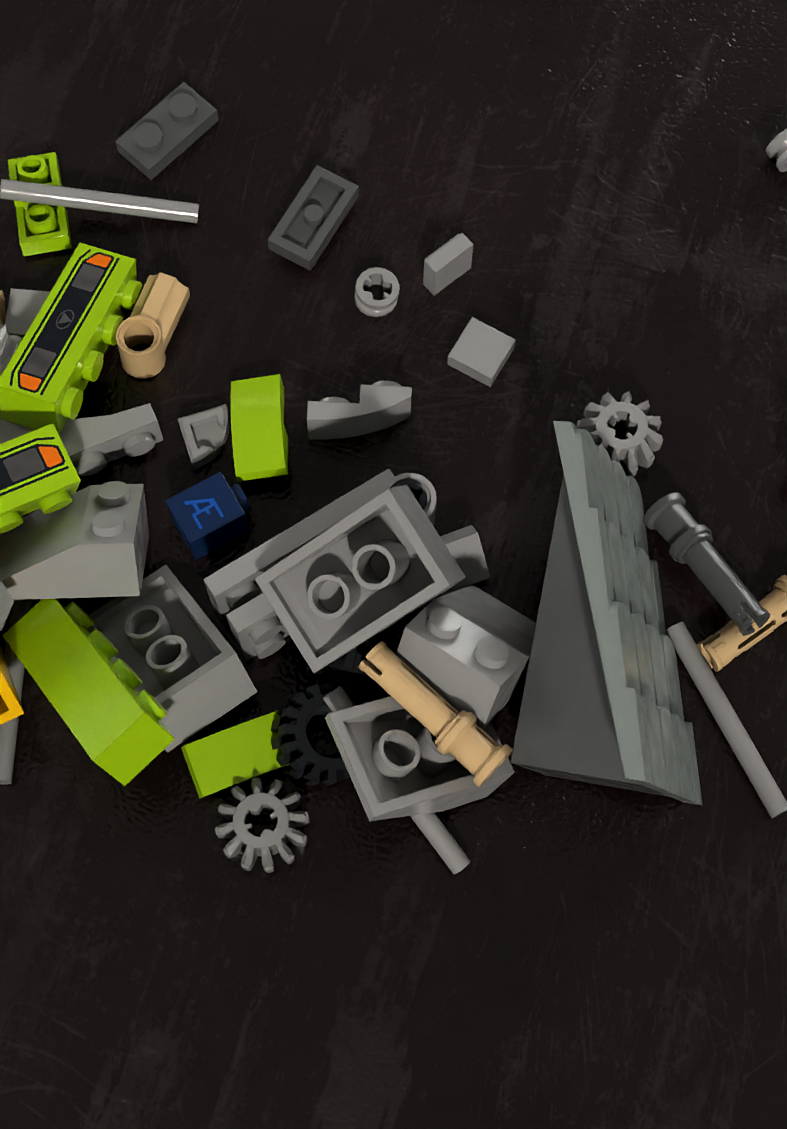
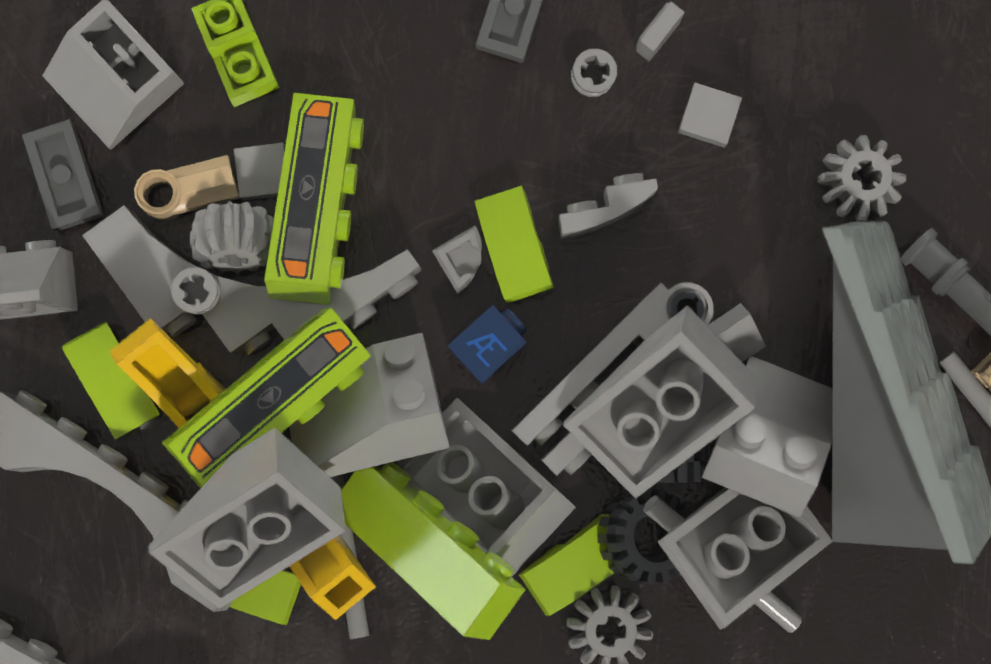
camera: 10 degrees left, 15 degrees up
(98, 201) = (297, 36): light grey bar -> none
(152, 324) = (383, 155): tan piece -> none
(454, 730) = (775, 524): tan pin -> none

